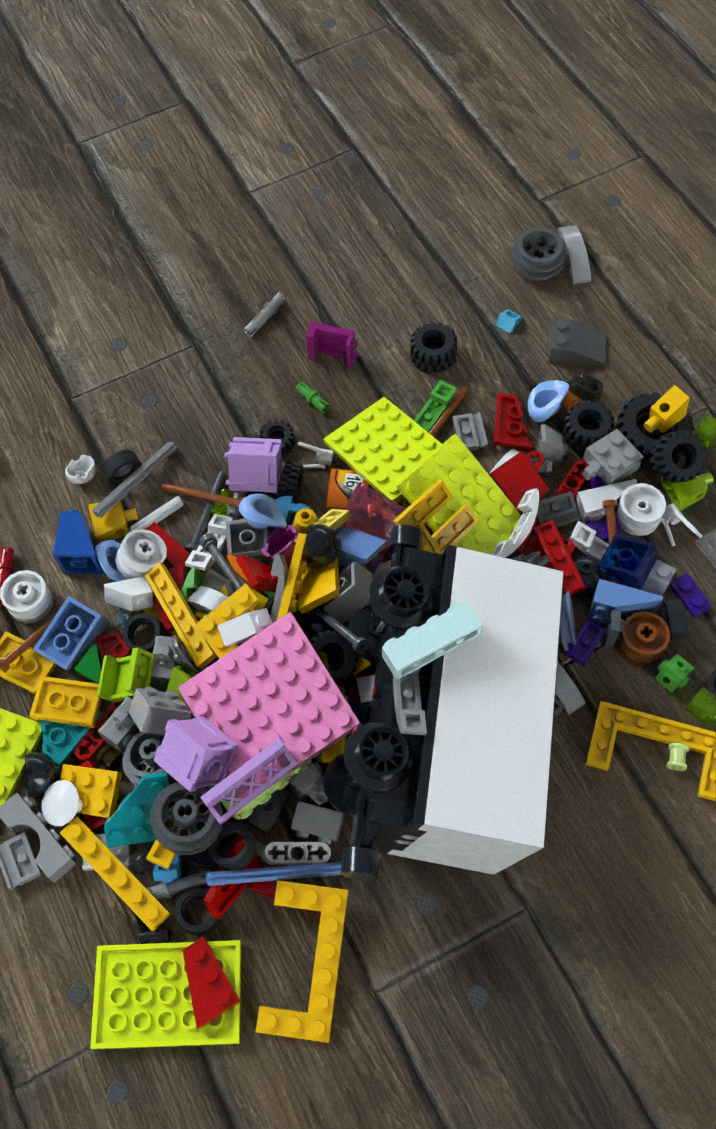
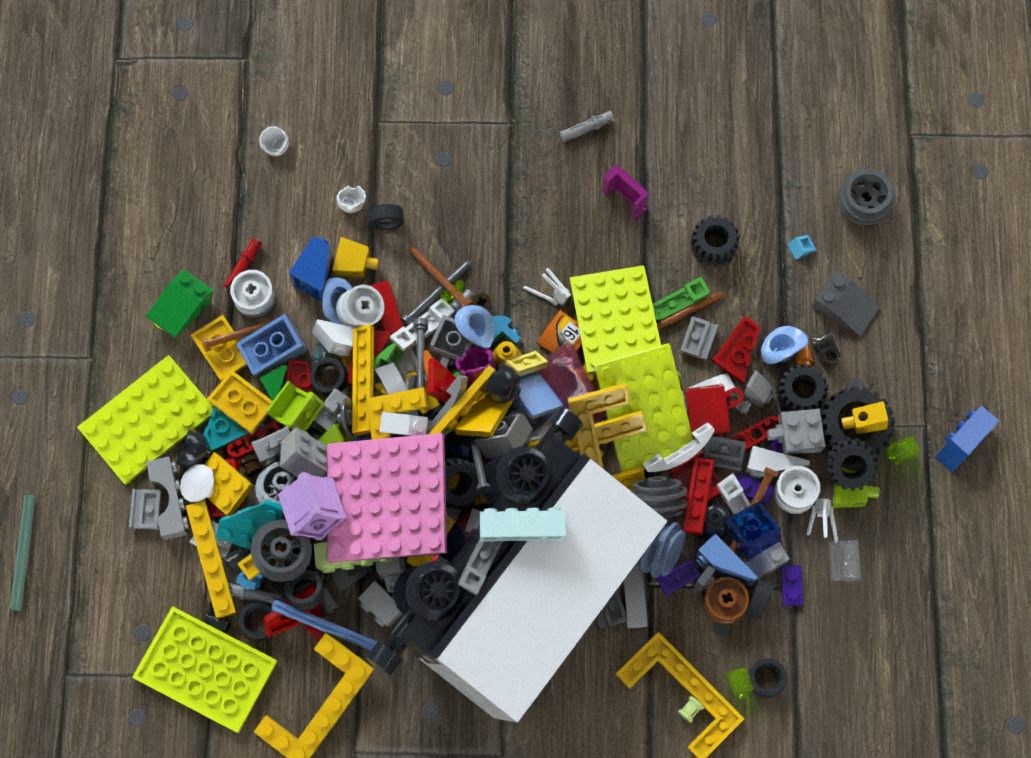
camera: 25 degrees right, 10 degrees up
(134, 479) = (391, 233): light grey axle -> none
(159, 514) = (394, 274): white axle -> none
(208, 984) = (237, 683): red wing -> none
(243, 774) = (339, 543): lavender fence -> none
(254, 464) = (495, 275): lavender container -> none
(279, 428) = (531, 244): black tyre -> none
(291, 480) = (519, 304): black tyre -> none
(312, 397) = (583, 232): bright green pin -> none
(313, 859) = (337, 617): white beam -> none
(576, 254) = (905, 210): light grey slope -> none
(674, 673) = (731, 642): bright green brick -> none

